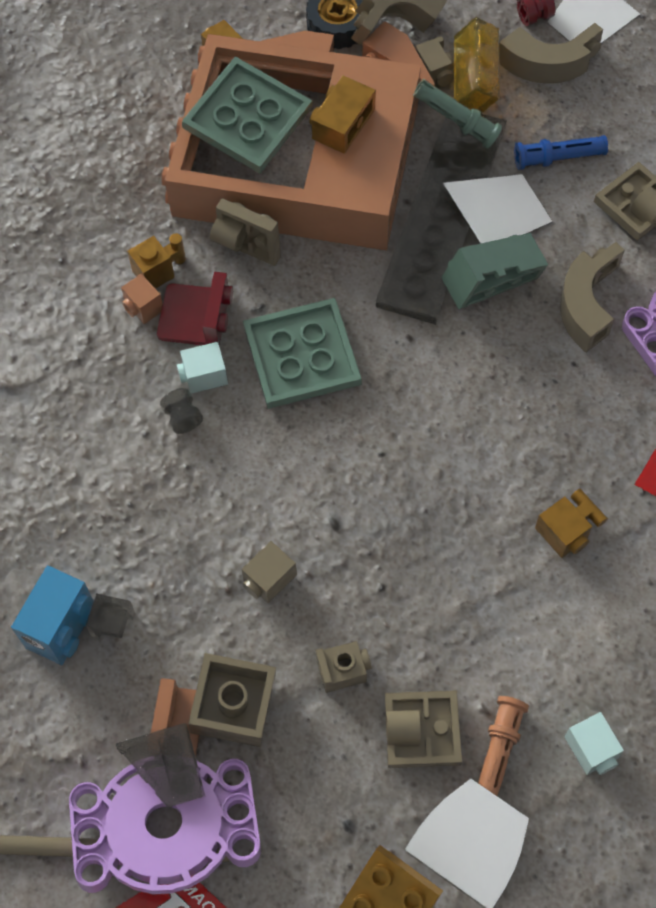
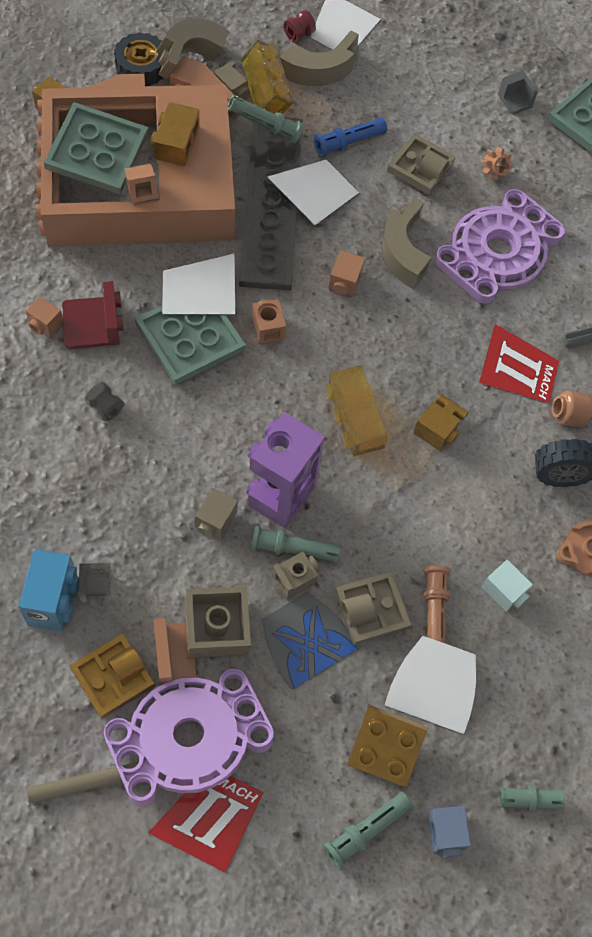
camera: 25 degrees left, 0 degrees up
(94, 727) = (112, 676): none -> pearl gold plate
(155, 260) = (47, 282): pearl gold brick -> none
(166, 763) = (178, 685): clear smoke wing -> none
(202, 368) = (112, 363): light aqua brick -> none
(246, 232) = (119, 245): dark tan plate -> none
(285, 165) = (141, 183): none -> nougat plate
(328, 300) = (200, 287): none -> white sticker
(335, 745) = (306, 639): none -> sticker
(336, 624) = (281, 542): none -> sand green pin
(358, 550) = (291, 470): none -> medium lavender plate
(397, 367) = (268, 330): none -> nougat brick
(470, 486) = (356, 411): none -> clear yellow brick
(493, 268) = (325, 236): sand green wedge -> none
(506, 317) = (346, 273): none -> nougat brick

